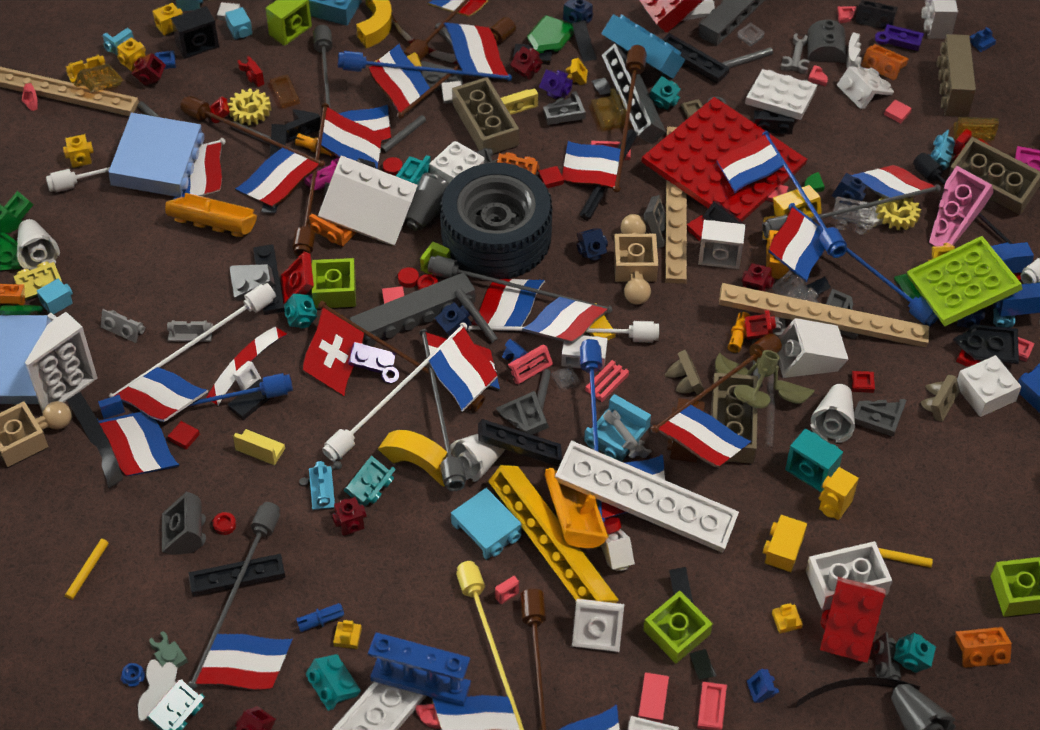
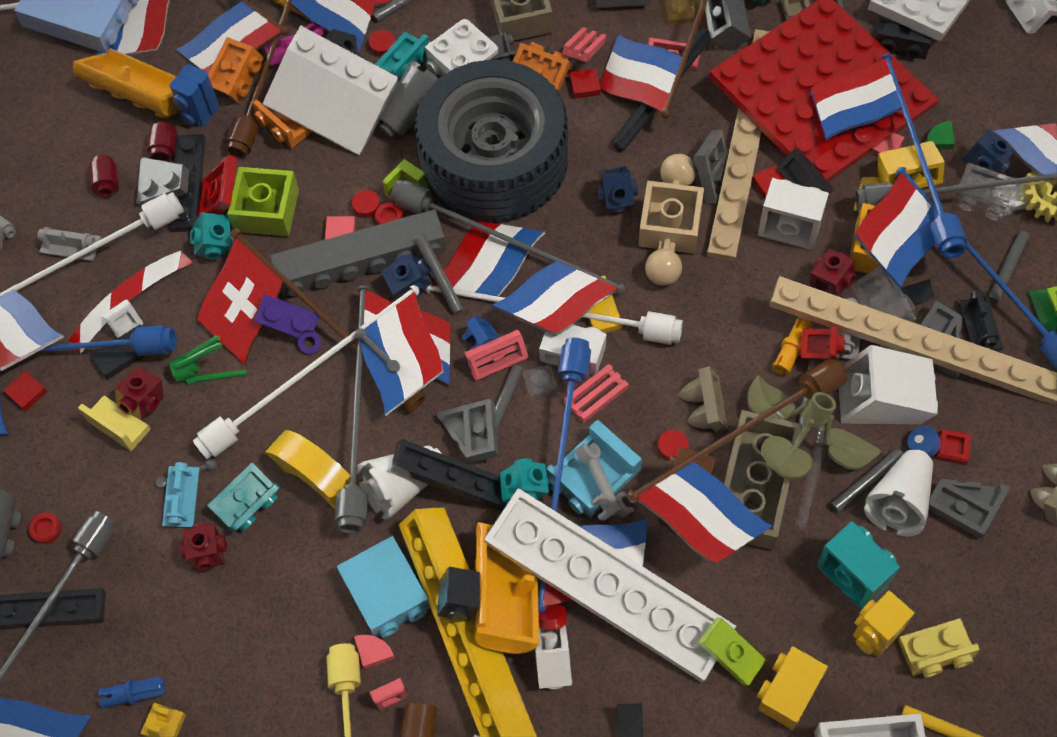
camera: 15 degrees right, 10 degrees up
(204, 281) = (103, 176): none -> dark red brick
(243, 252) = (162, 141): none -> dark red brick
(263, 217) = (194, 96): none -> blue brick
(274, 422) = (139, 393): none -> dark red brick
(287, 195) = (235, 69): none -> orange bracket
(303, 401) = (187, 365): none -> green plant
(460, 376) = (393, 365): none -> dark grey hinge
(488, 566) = (373, 650): none -> coral tile
(546, 511) = (458, 594): none -> black brick
(553, 150) = (579, 43): none -> coral tile
(566, 435) = (525, 475): none -> teal brick
(666, 404) = (670, 443): none -> red tile
(740, 527) = (732, 651): none -> lime plate
(807, 412) = (866, 481): none -> dark grey bar
(843, 377) = (924, 439): none -> blue tile
(864, 298) = (980, 321): none -> black hinge
(877, 262) = (1009, 265): none -> dark grey bar
(877, 507) = (938, 647): none -> light yellow bracket

